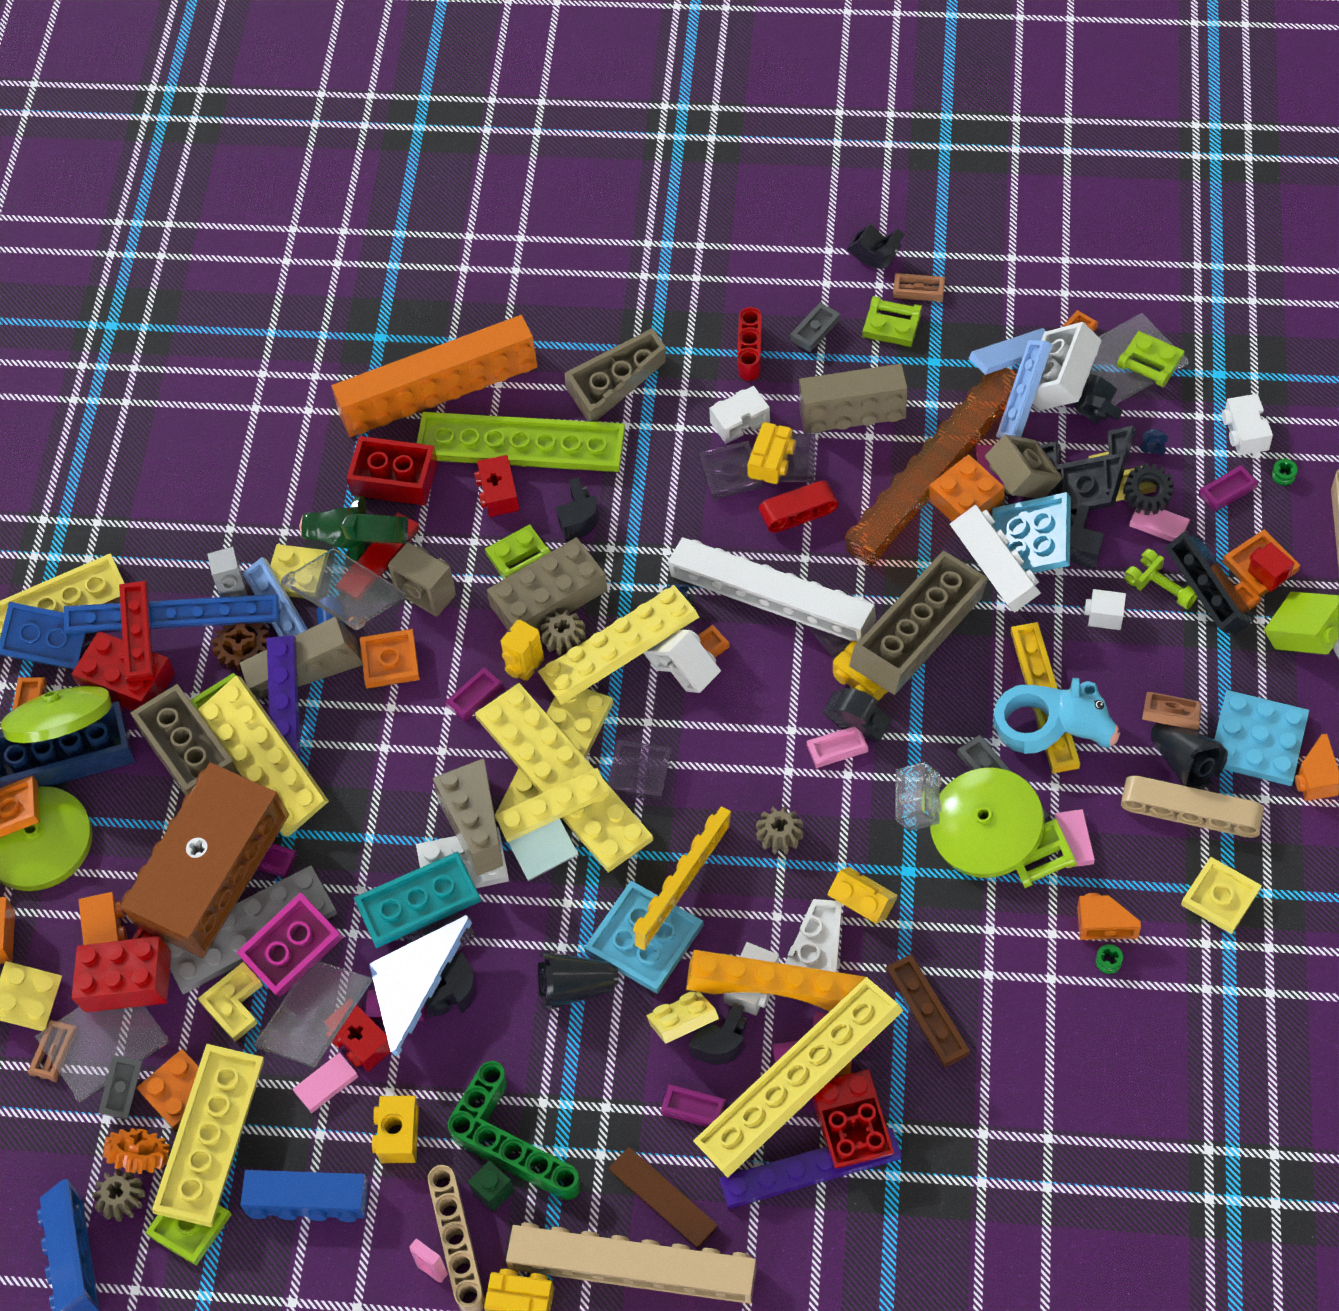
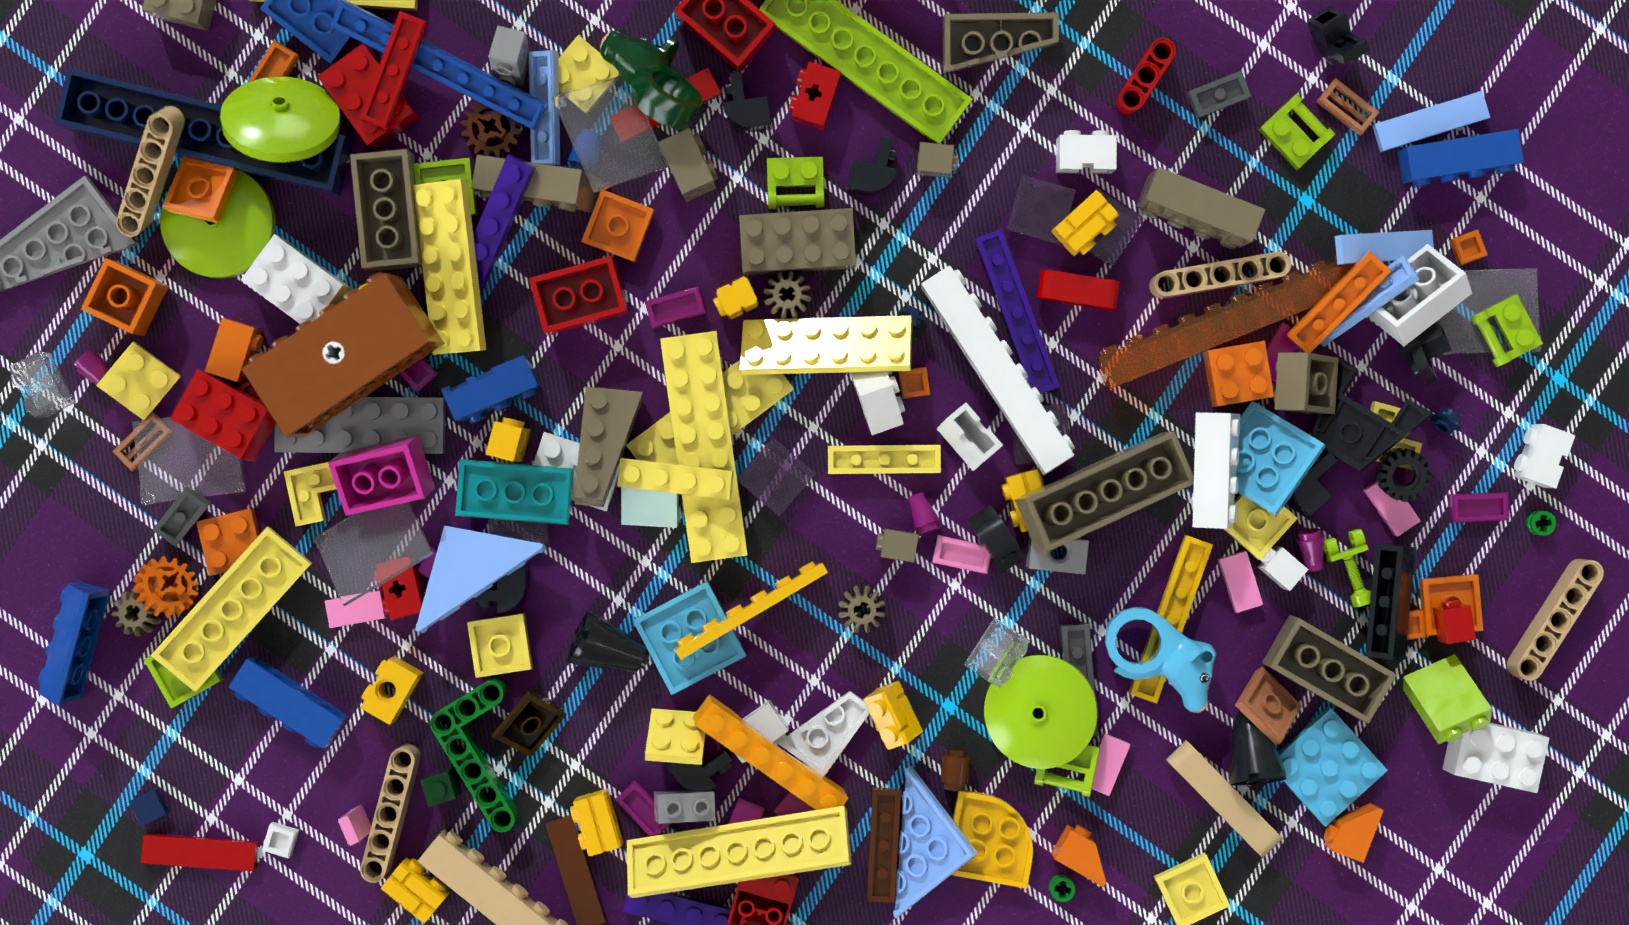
camera: 25 degrees right, 30 degrees up
(122, 840) = (293, 281): none -> white brick
(351, 832) = (492, 390): none -> blue wedge
(386, 720) = (579, 295): none -> red brick
(387, 855) = (508, 440): none -> yellow brick
(448, 526) = (743, 113): none -> black brick
(476, 1036) = (500, 645): none -> light yellow plate
(541, 1085) = (530, 722): none -> dark brown slope
(623, 479) = (936, 160): none -> dark tan brick
(655, 1137) = (597, 822): none -> yellow brick
(722, 708) = (884, 459): none -> light yellow plate
(726, 1072) = (684, 806): none -> light grey brick
(754, 542) = (1016, 311): none -> dark purple plate
(777, 764) = (897, 544): none -> dark tan brick
(781, 650) = (969, 436): none -> white brick
(785, 732) = (923, 515): none -> magenta cone
(892, 443) = (1231, 268): none -> tan beam
(909, 710) = (1072, 561): none -> light grey brick
(947, 911) = (955, 769): none -> reddish brown brick
(968, 987) = (928, 844): none -> light blue tile
(988, 264) = (1431, 121): none -> light blue tile
(1005, 395) = (1339, 302): none -> orange plate
(1017, 955) = (997, 836): none -> yellow plate
(1026, 272) = (1460, 156): none -> blue brick
(1062, 591) = (1257, 528): none -> light yellow plate
(1081, 641) = (1240, 581): none -> bright pink tile
(1117, 581) = (1312, 548): none -> magenta cone
(1199, 657) = (1329, 668): none -> dark tan brick

